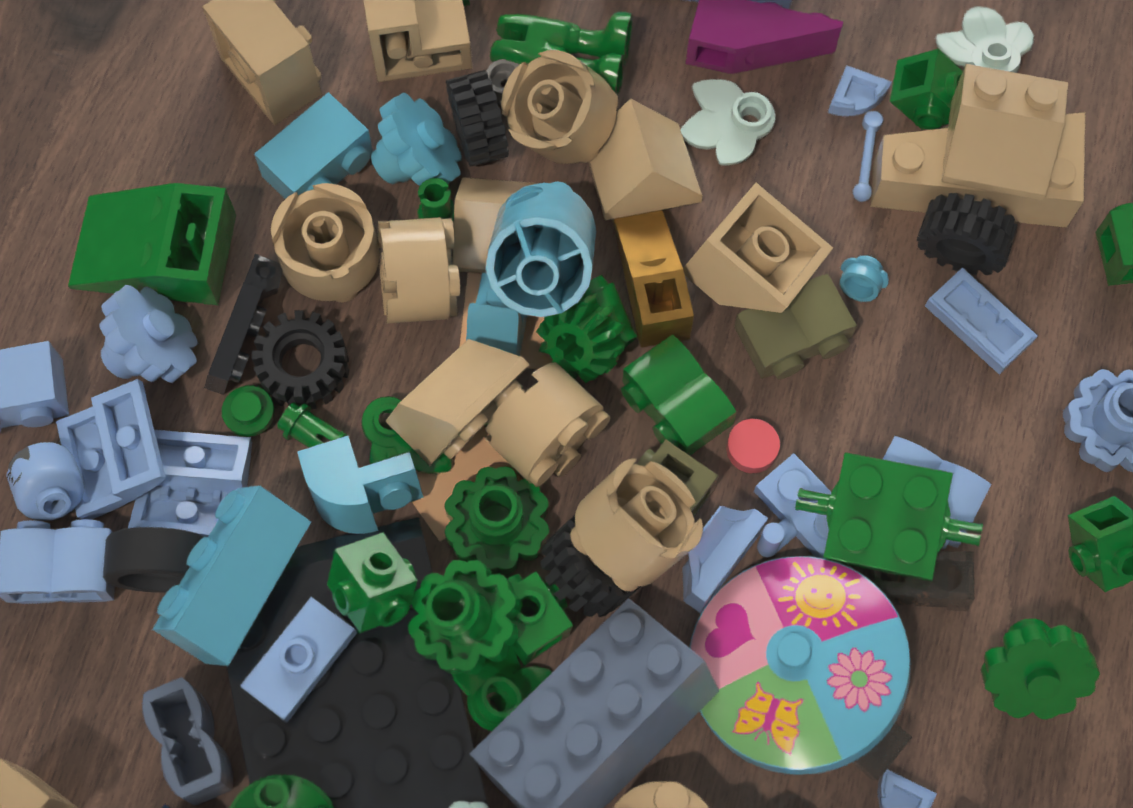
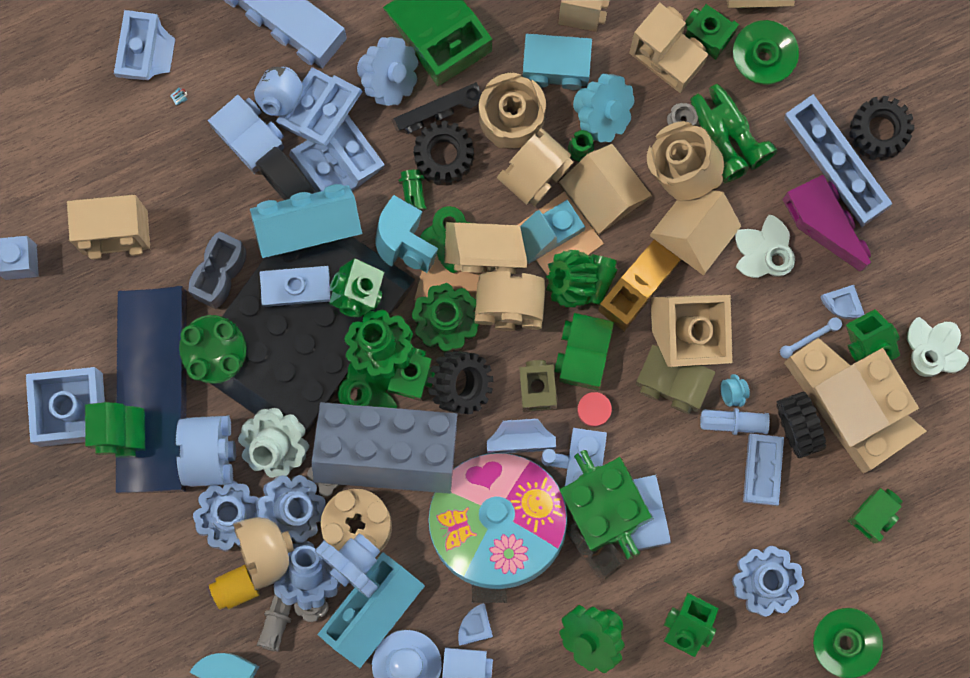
camera: 50 degrees right, 10 degrees up
(248, 411) = (396, 151): green plate -> none
(477, 118) = (645, 124): black tyre -> none
(542, 249) = (594, 221): medium azure cylinder -> none
(636, 524) = (494, 386): tan brick -> none
(899, 305) = (734, 421): none -> light blue axle

